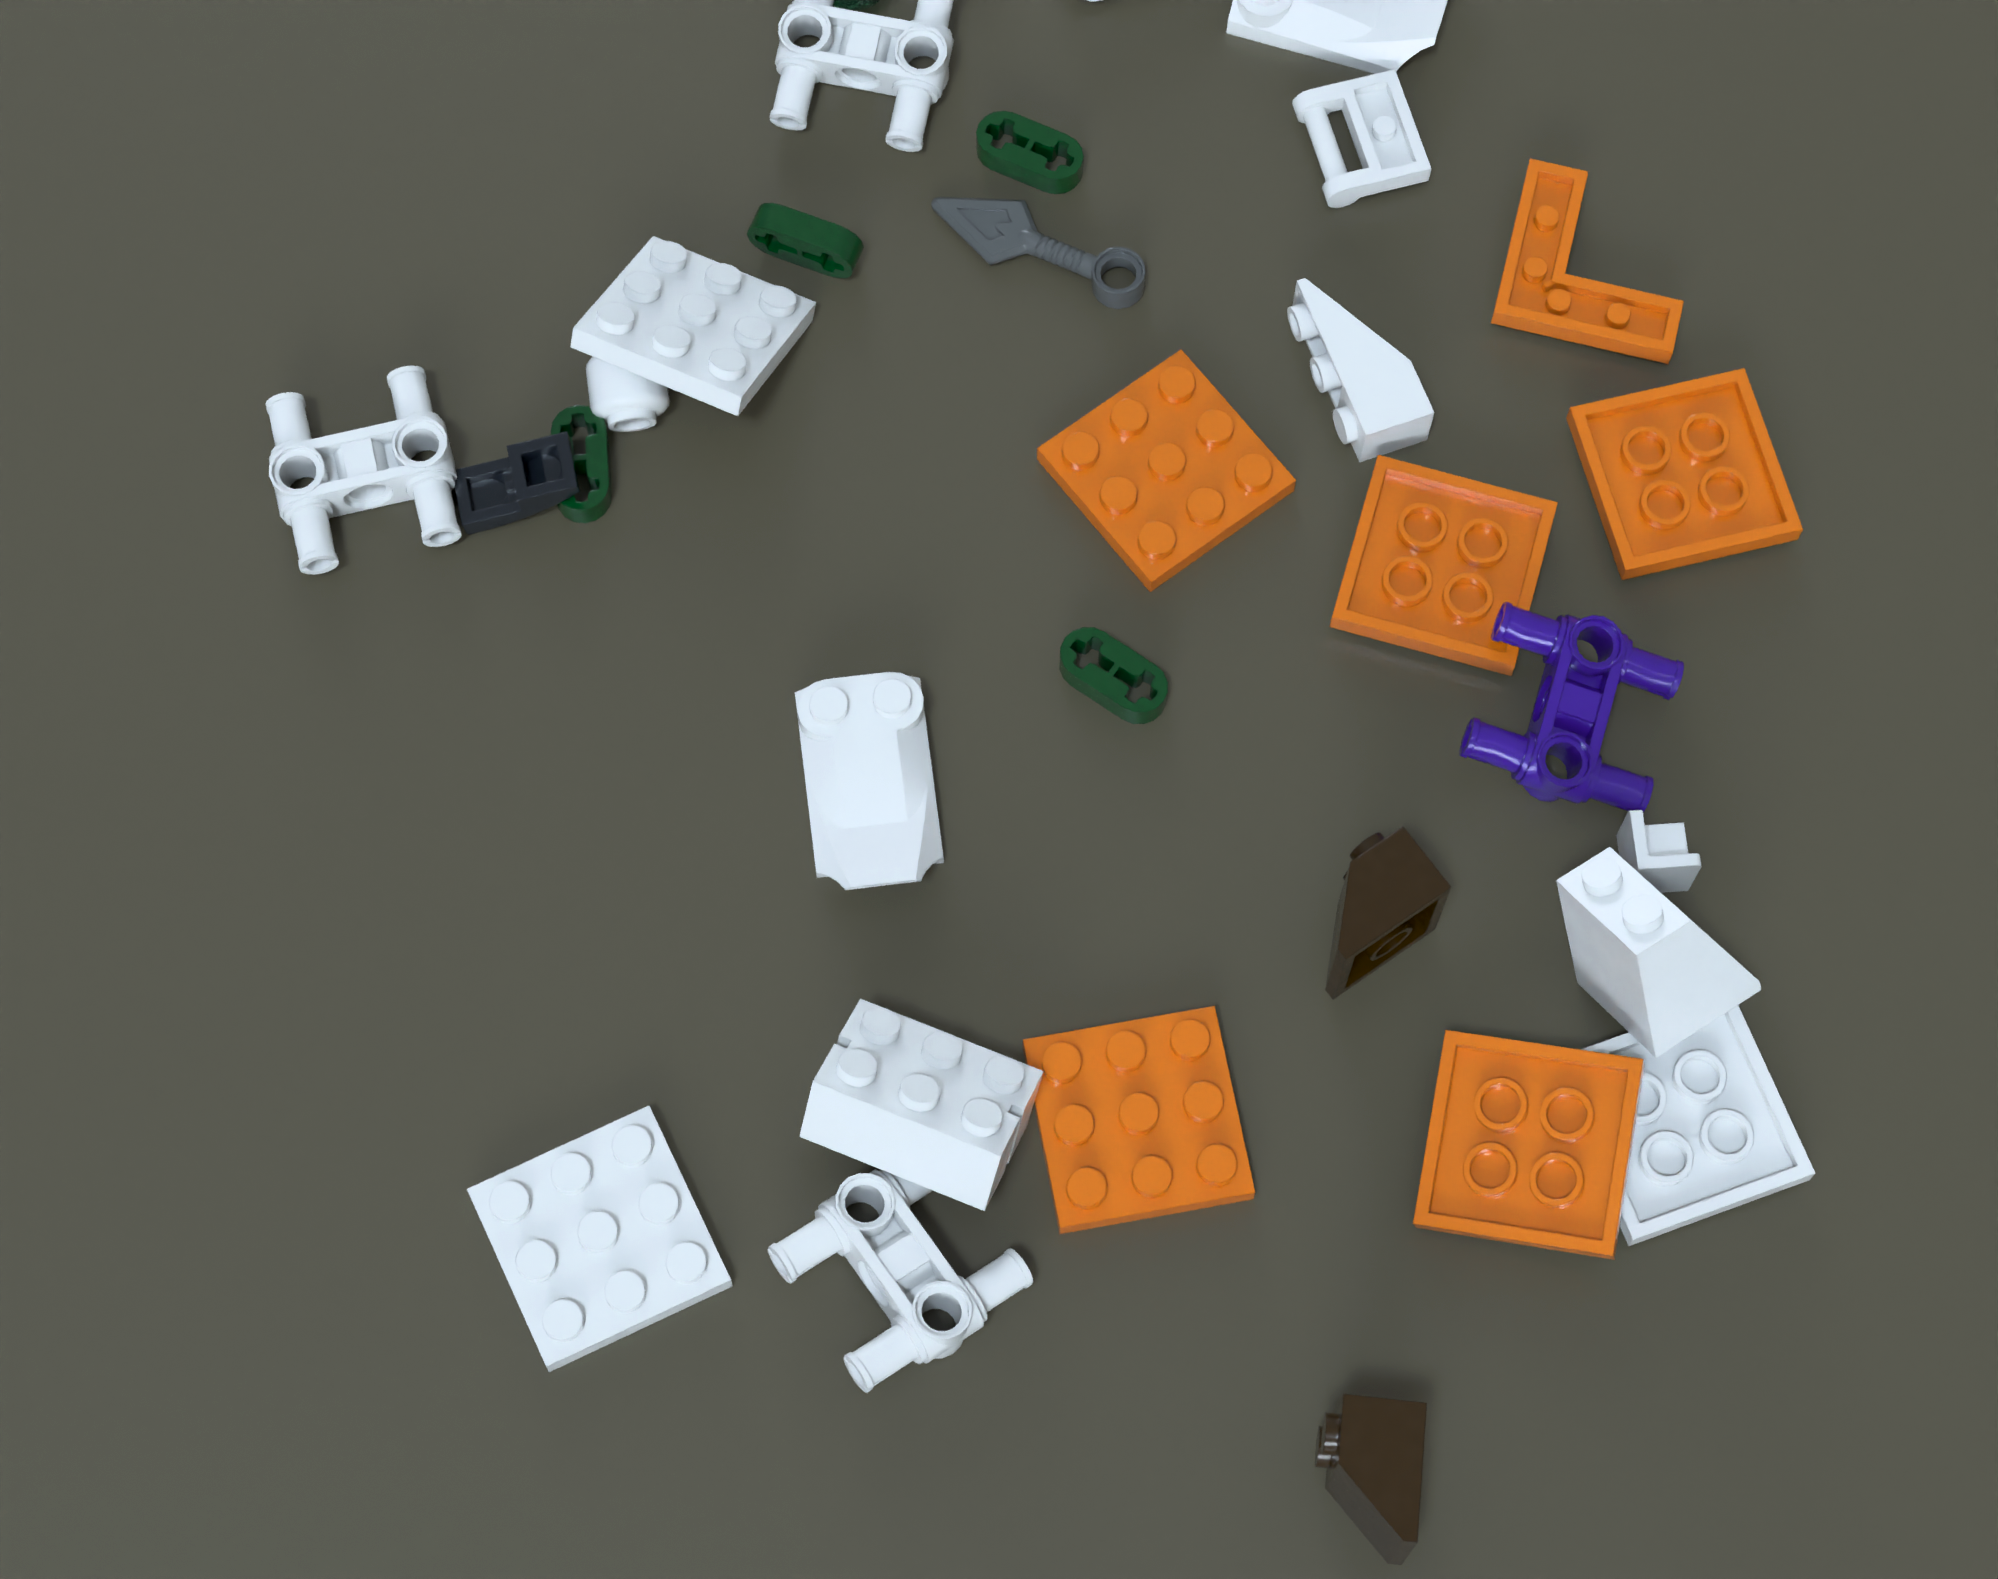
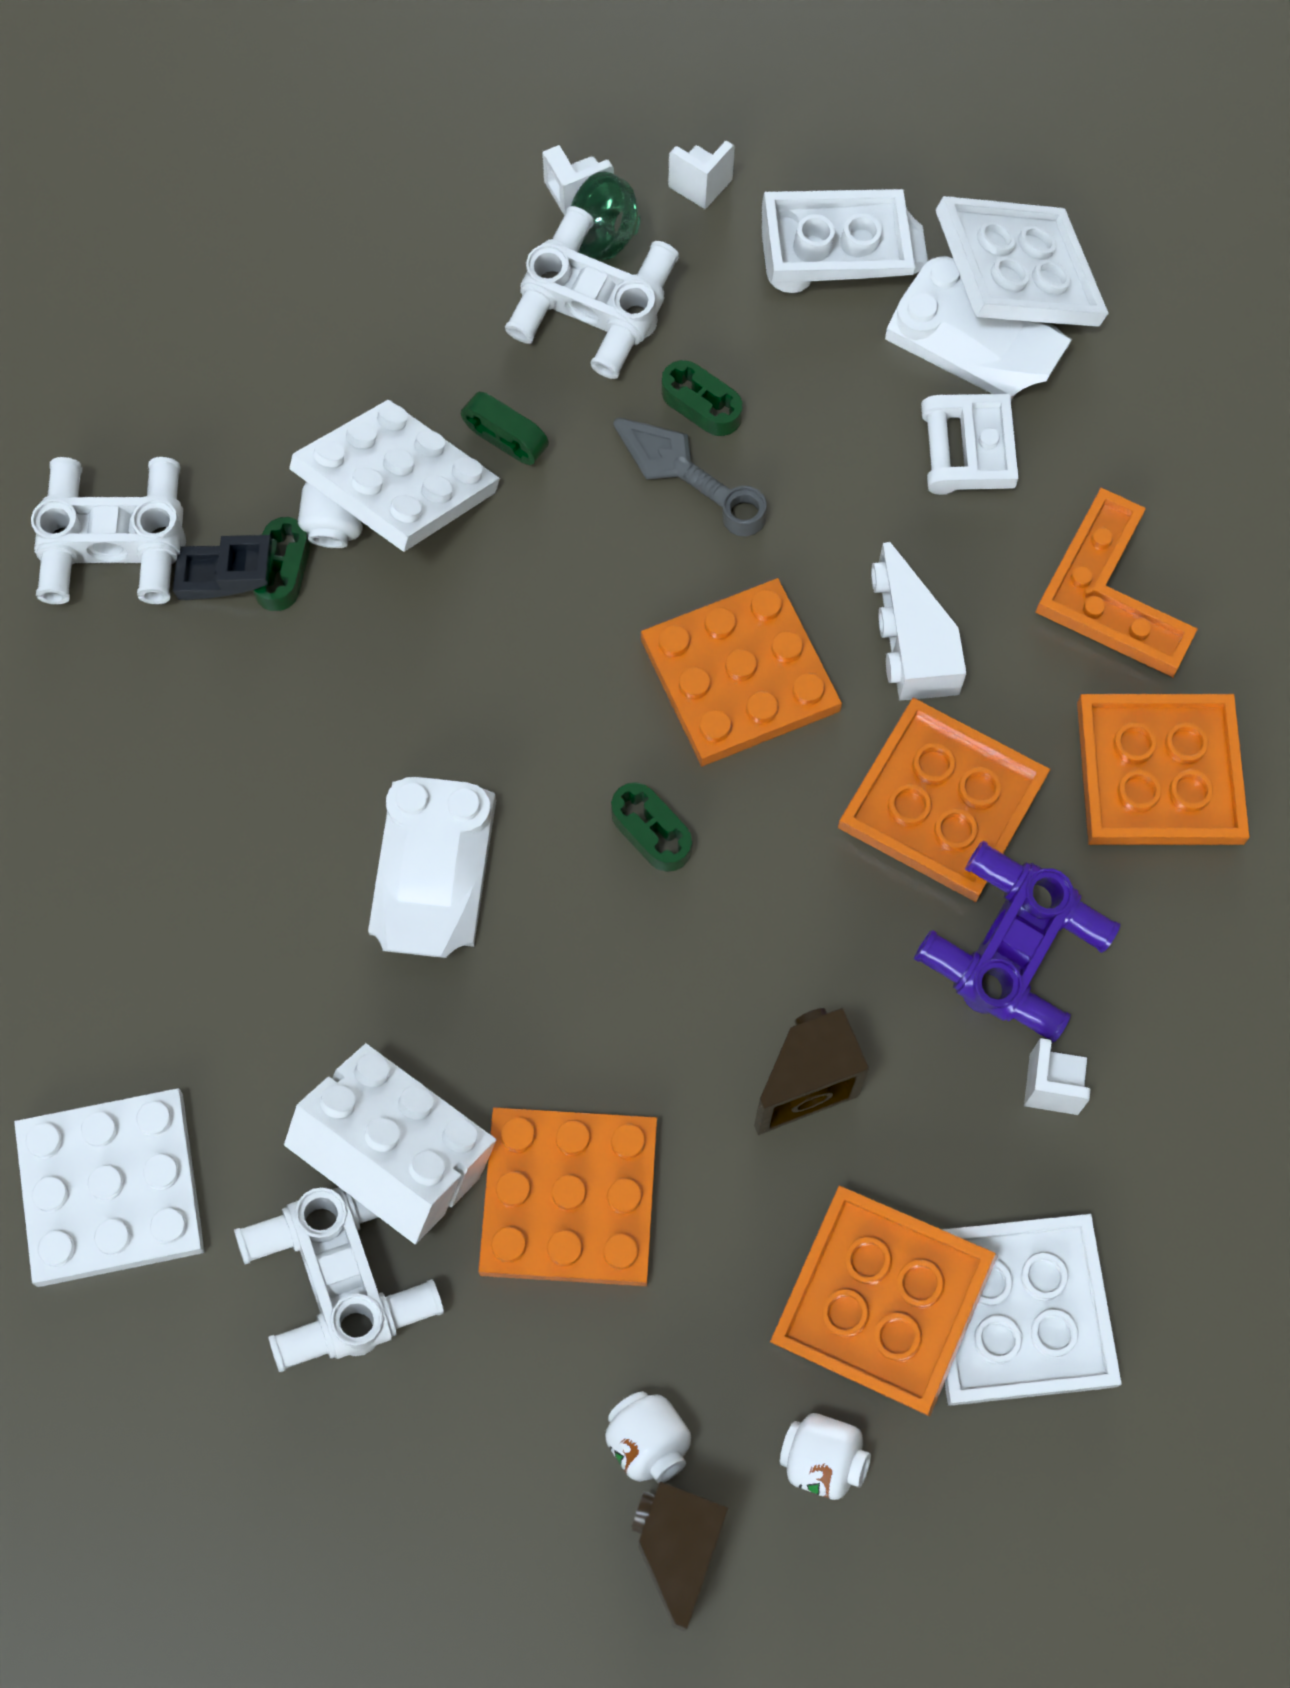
camera: 15 degrees right, 0 degrees up
(1305, 1361) = (648, 1437): none -> white head
(1508, 1332) = (824, 1456): none -> white head
(1646, 955) = (1025, 1163): white slope -> none

